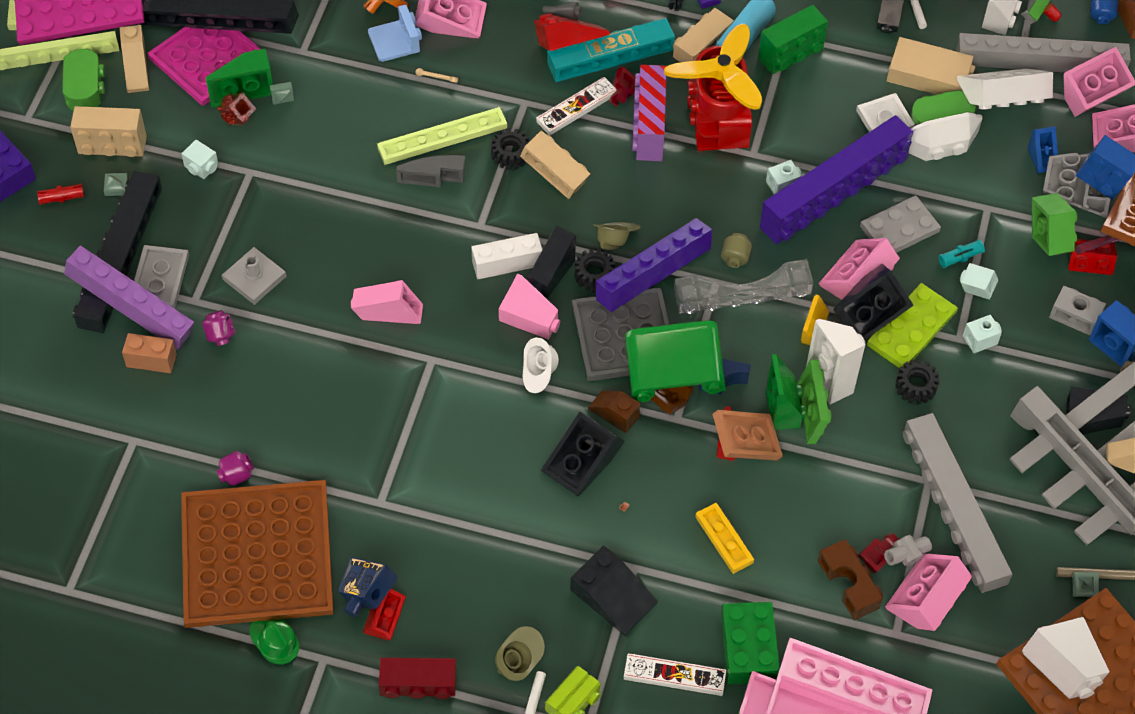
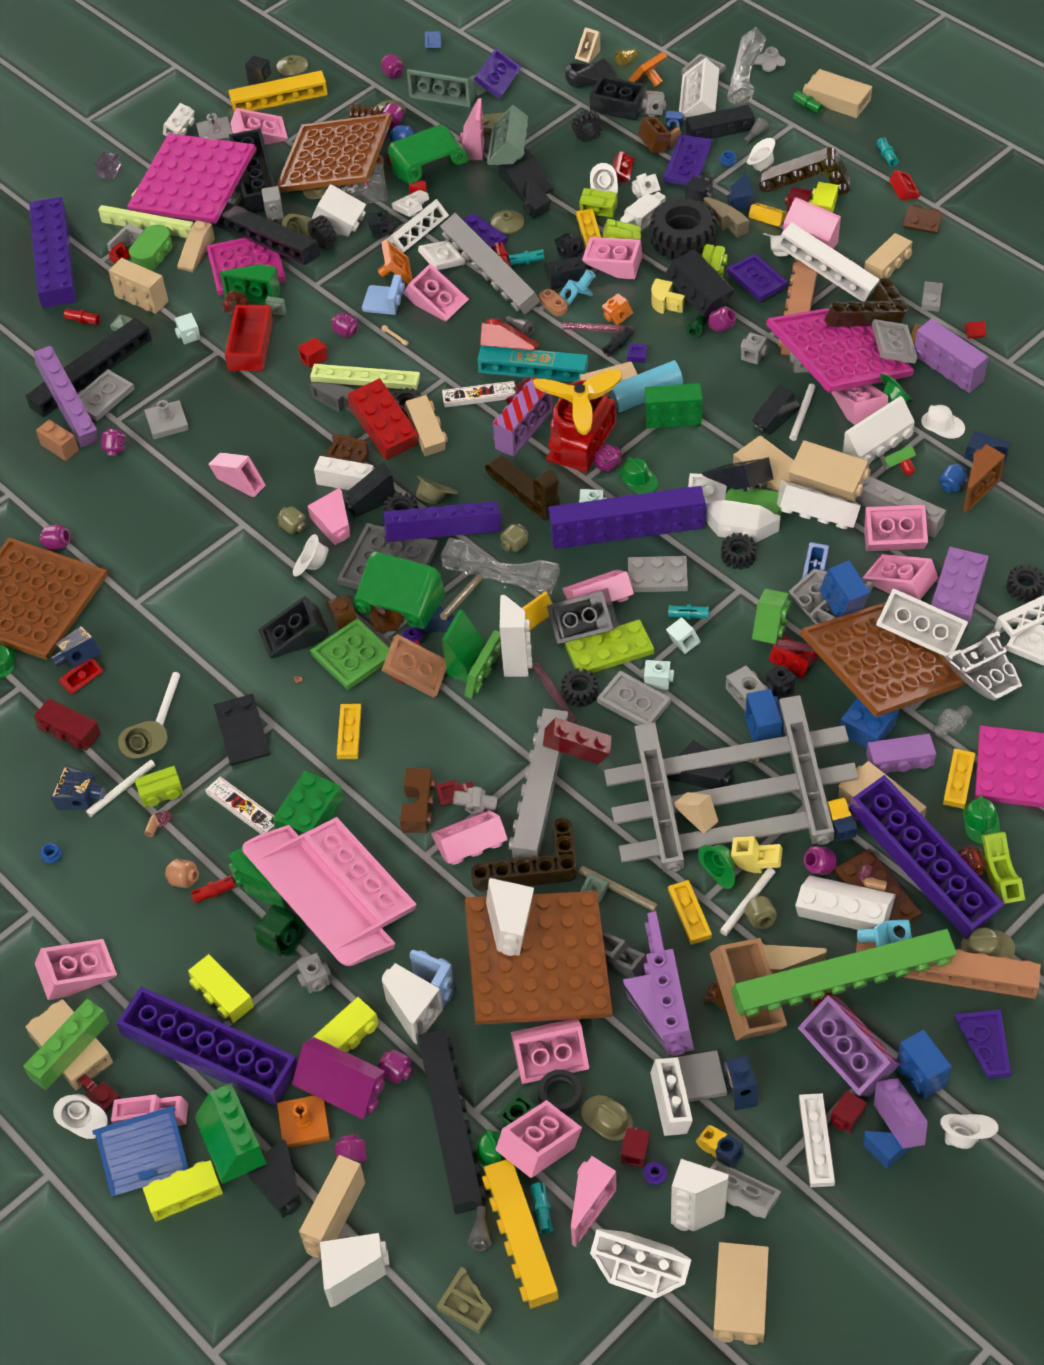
camera: 35 degrees right, 5 degrees down
(44, 72) = (127, 234): none -> light grey bracket
(48, 102) = (118, 252): none -> red slope
(284, 142) = (249, 338): none -> red piece
(365, 131) = (313, 352): none -> red brick
(376, 85) = (344, 325): none -> magenta head
(488, 332) = (291, 520): none -> olive head
(489, 226) = (348, 449): none -> reddish brown bracket
(502, 595) = (168, 698): none -> white bar
(506, 176) = (382, 419): none -> red piece
(663, 452) = (351, 654): none -> bright green plate
(707, 408) = (418, 635): none -> dark purple plate
(708, 192) = (534, 494): none -> dark brown beam
(733, 339) = (461, 597): none -> dark tan bar
(764, 123) = (607, 458): none -> magenta head
(805, 130) = (638, 476): none -> green piece
(891, 397) = (553, 691): none -> clear pink bar
(915, 86) = (742, 474): none -> black slope
(961, 178) = (738, 542): none -> black tyre
(968, 440) = (577, 741): none -> dark red brick
(978, 371) = (633, 699): none -> light grey plate
(1002, 48) = (829, 471): none -> tan brick
(1016, 593) = (534, 865): none -> dark brown beam
(1103, 287) = (780, 681): none -> black brick

